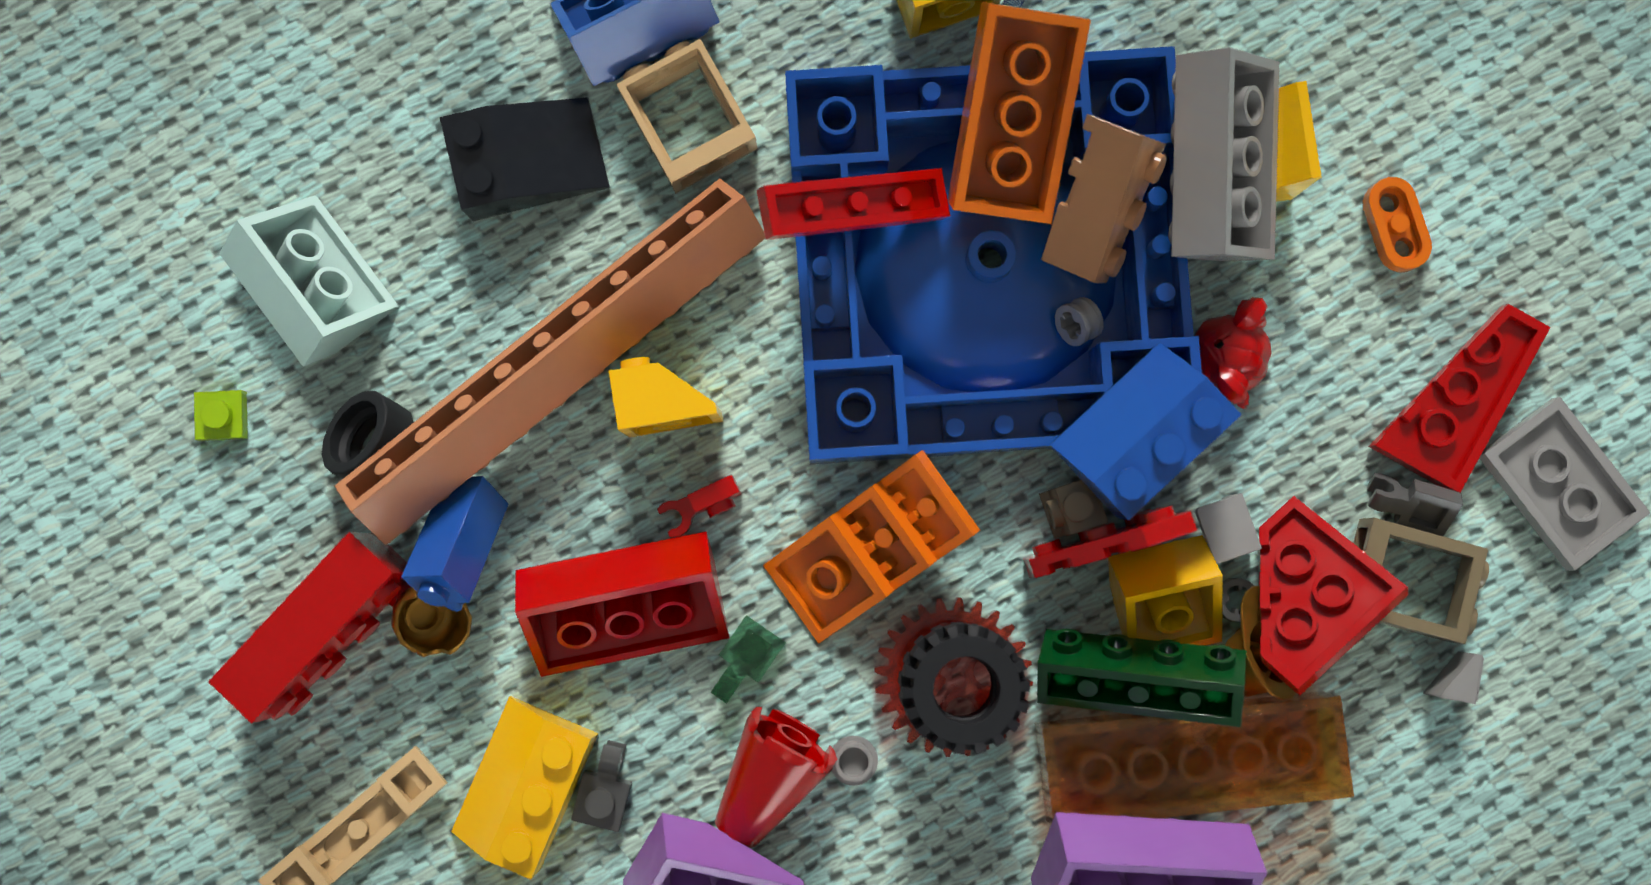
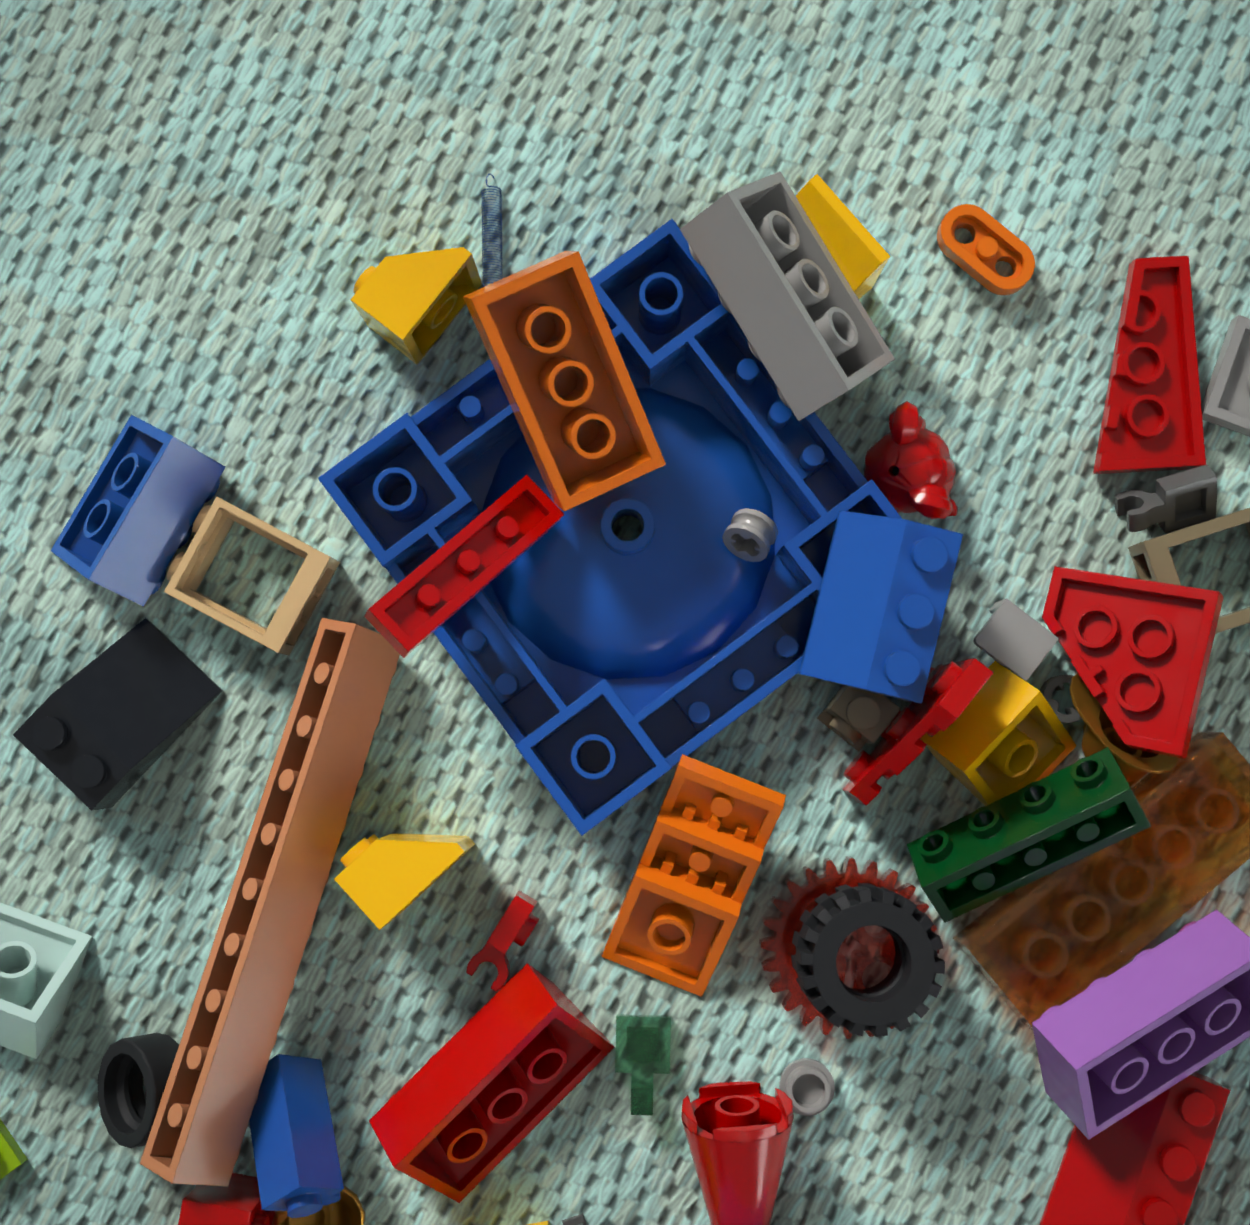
camera: 30 degrees left, 0 degrees up
(1103, 201) = (700, 409): medium nougat wedge -> none

